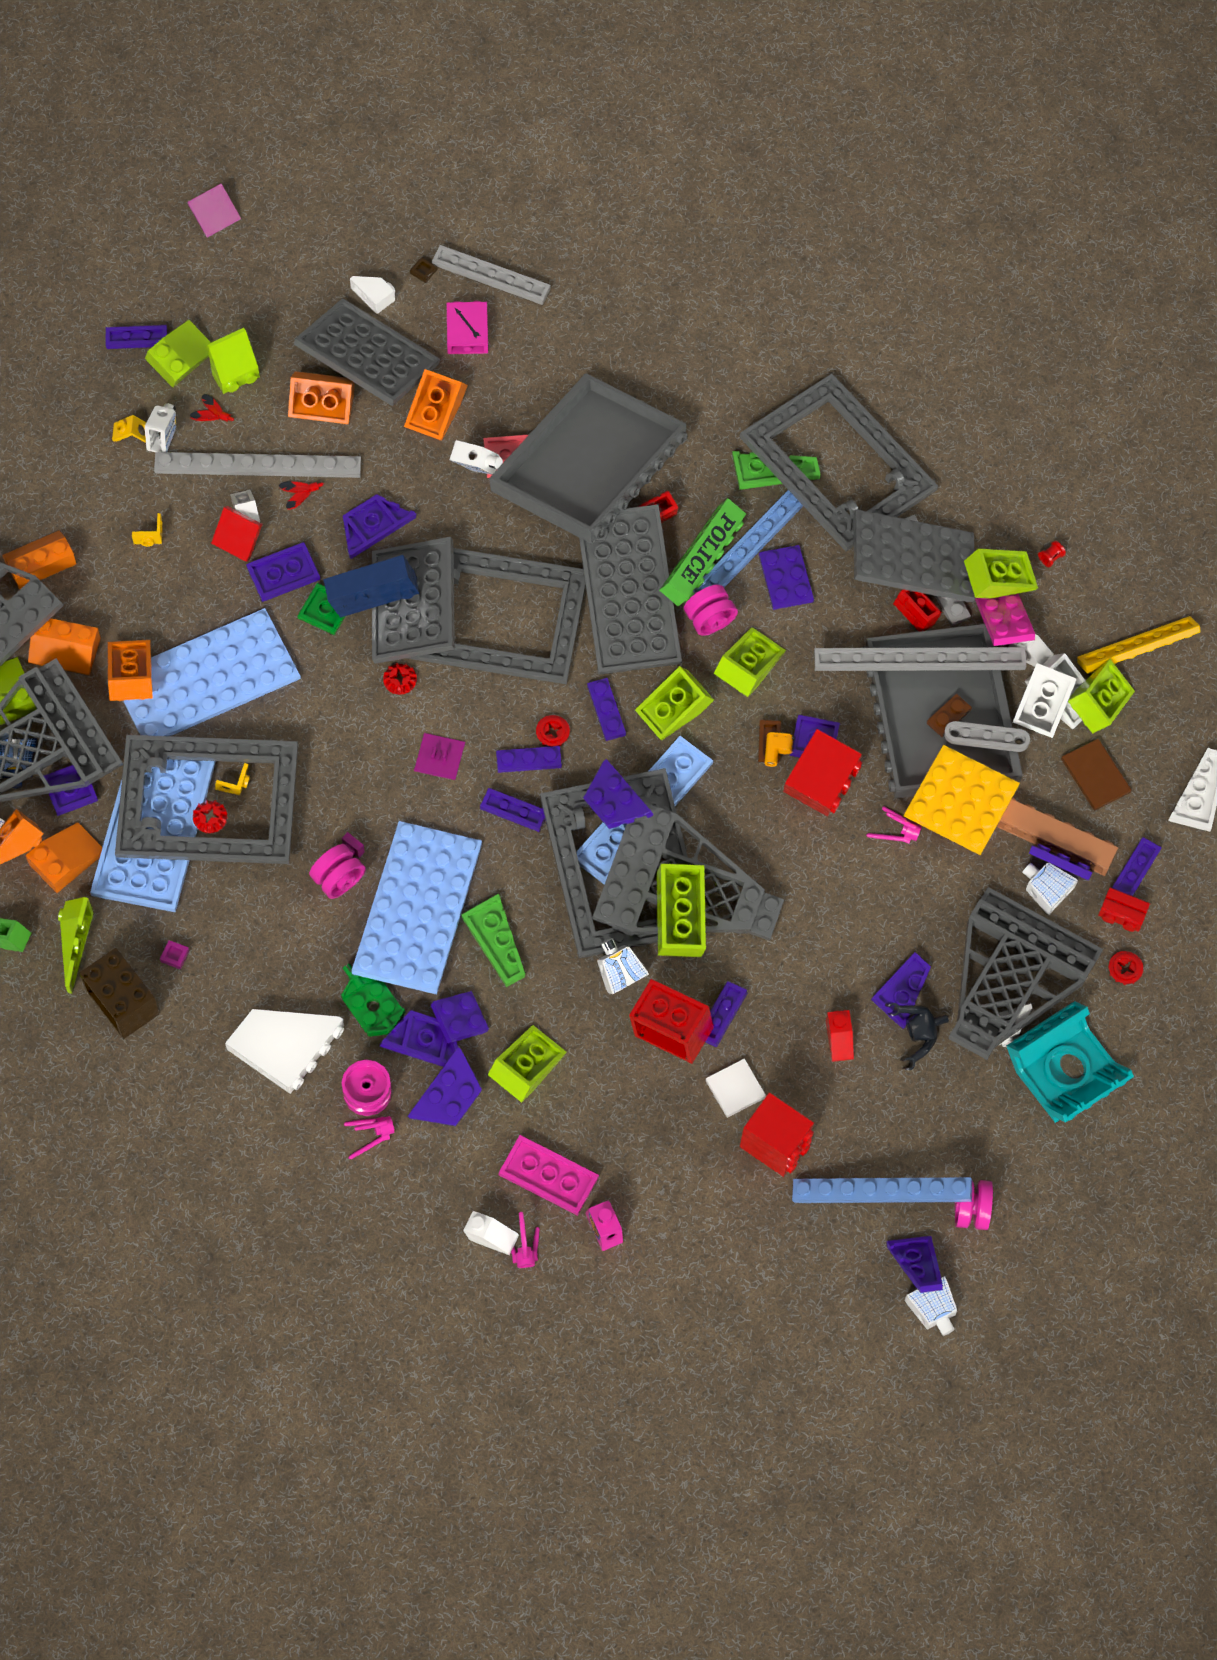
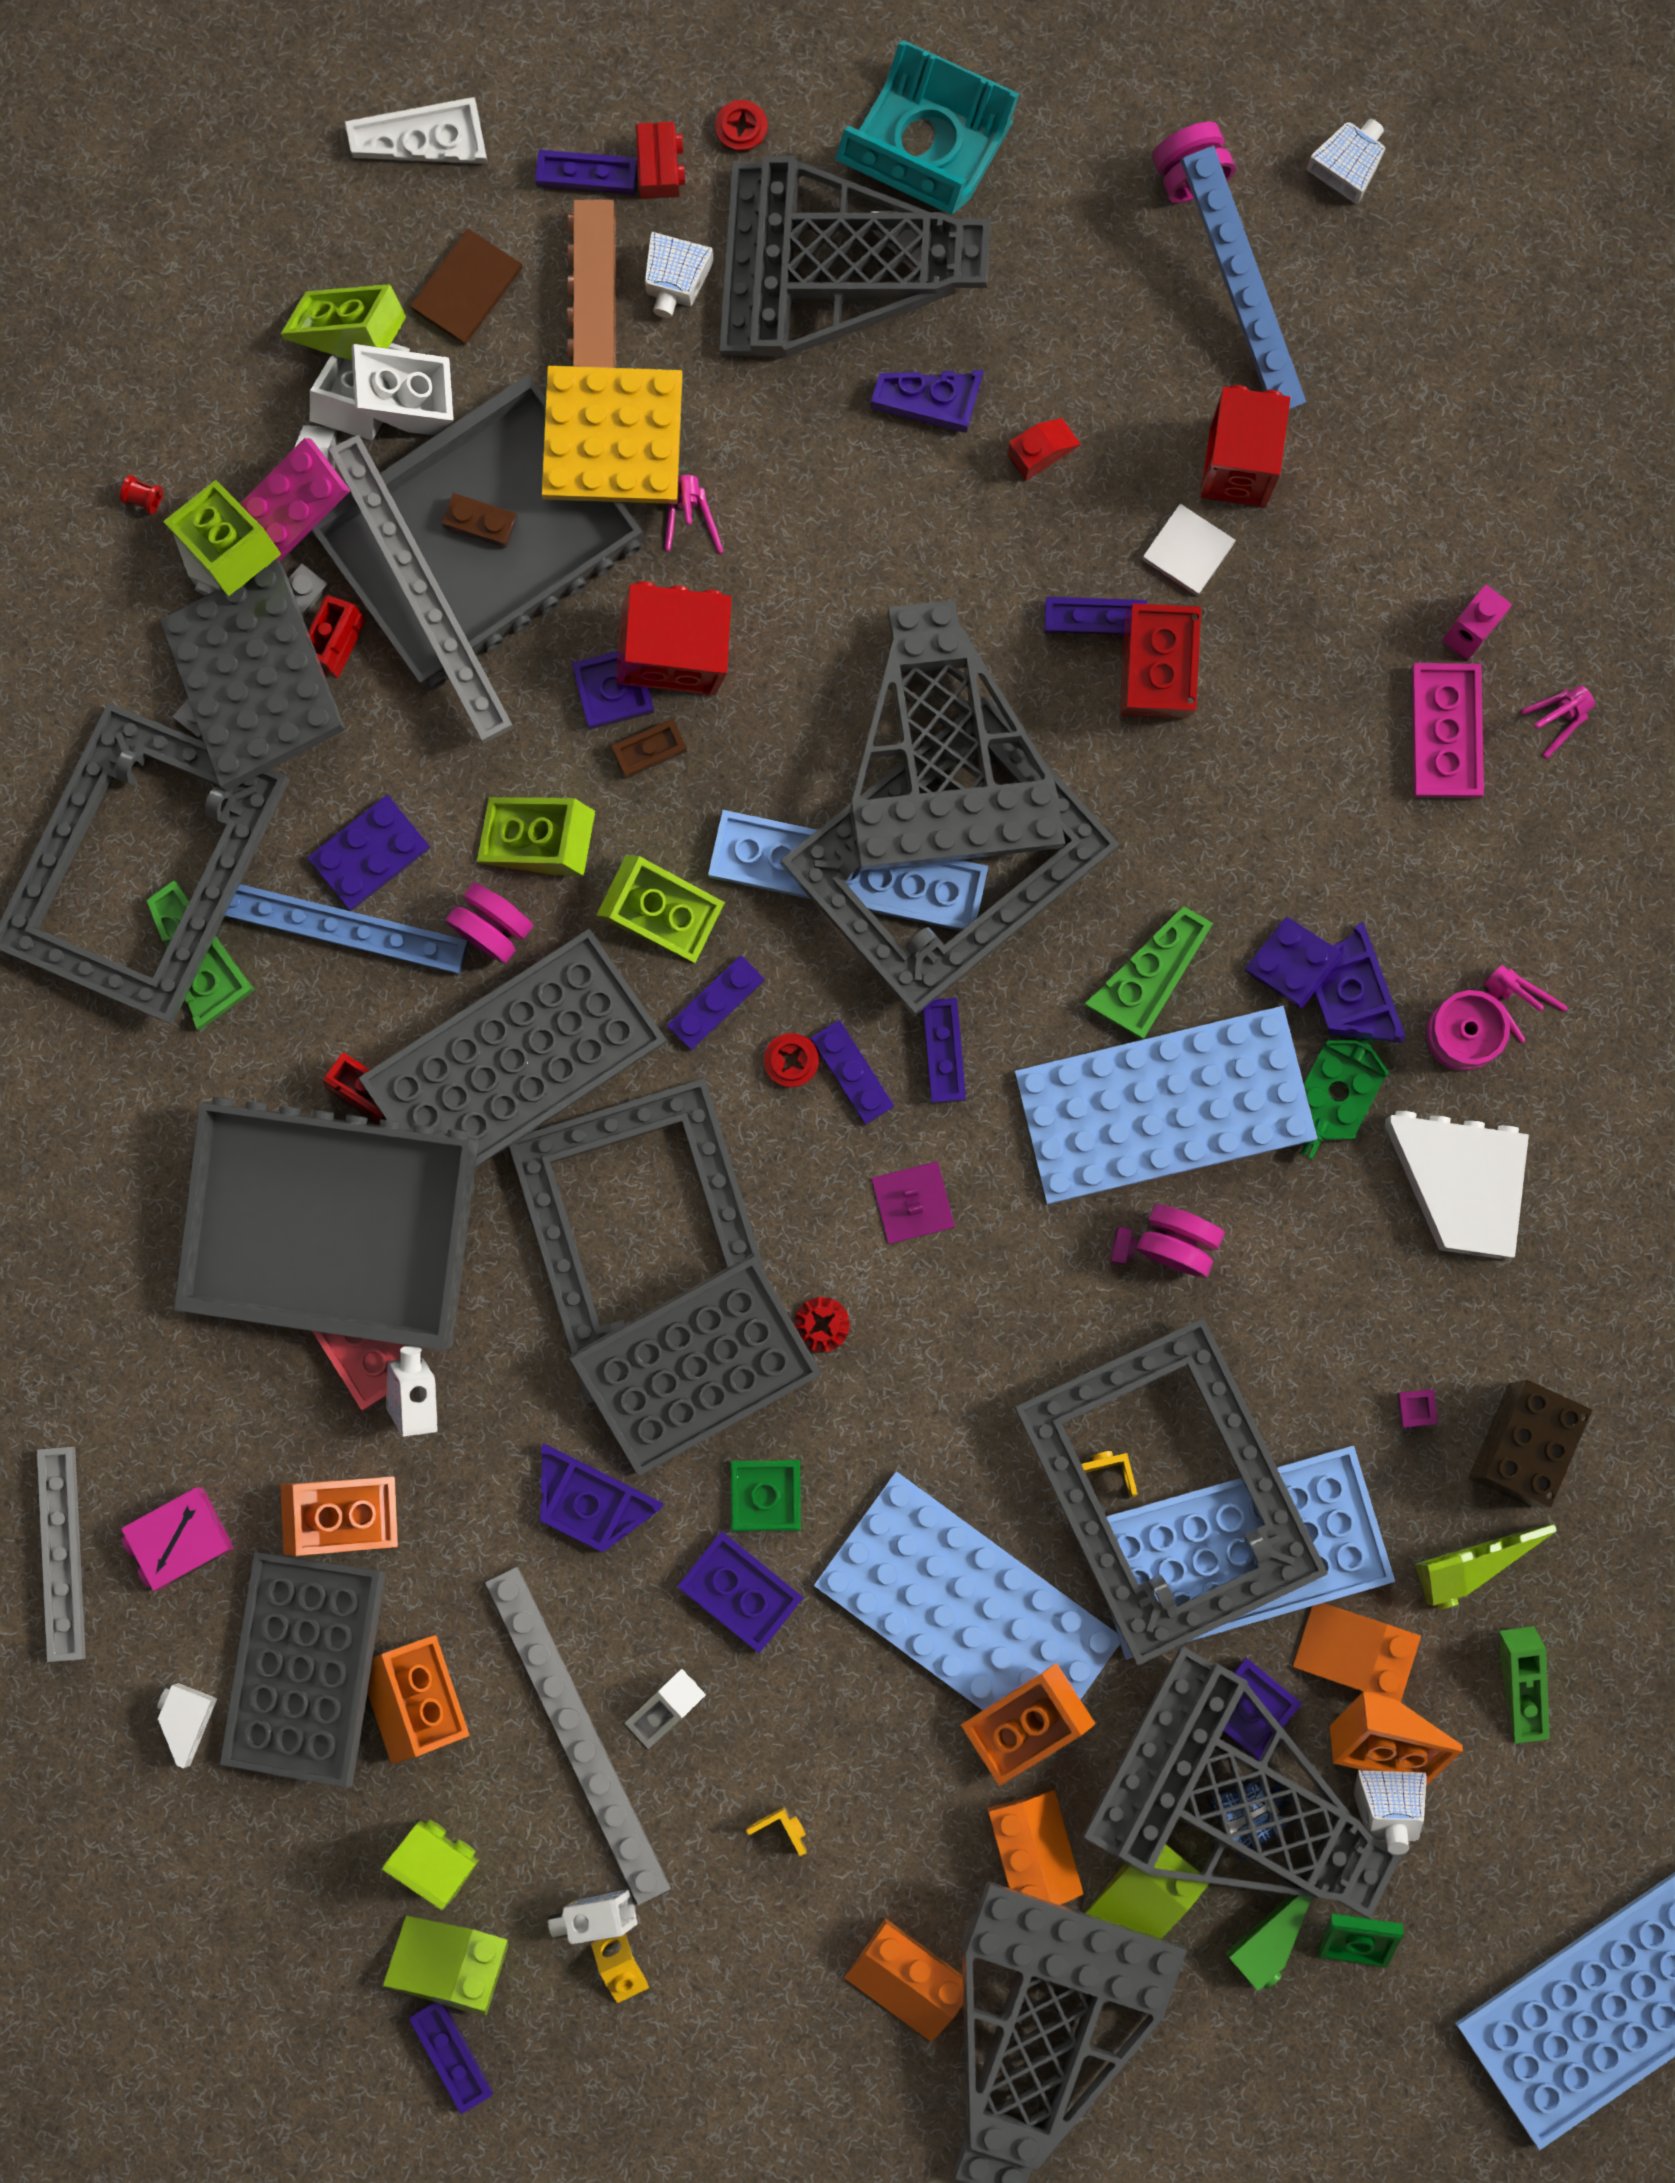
camera: 115 degrees left, 15 degrees up
(213, 413) = (518, 1854): red piece -> none
(214, 210) = (159, 2064): piece -> none
(214, 824) = (1193, 1480): red gear -> none
(236, 533) = (718, 1694): tile -> none
(301, 489) = (584, 1641): red piece -> none
(371, 586) = (716, 1430): dark blue brick -> none
(423, 270) = (102, 1667): dark brown tile -> none
(449, 1093) = (1410, 919): dark purple wing -> none
(490, 1233) = (1573, 760): white slope -> none
(526, 1063) = (1308, 837): lime slope -> none
(614, 799) = (875, 898): dark purple wing -> none
(619, 967) = (1108, 779): torso -> none
(681, 910) = (999, 719): lime brick -> none
(702, 552) = (399, 980): bright green brick -> none
(777, 744) = (655, 731): light orange piece -> none
(918, 1261) = (1308, 197): dark purple wing -> none
(920, 1027) = (975, 348): black piece -> none
(987, 736) = (496, 442): light grey plate -> none
(1061, 861) = (637, 264): dark purple plate -> none
(1139, 644) = (231, 312): yellow plate -> none

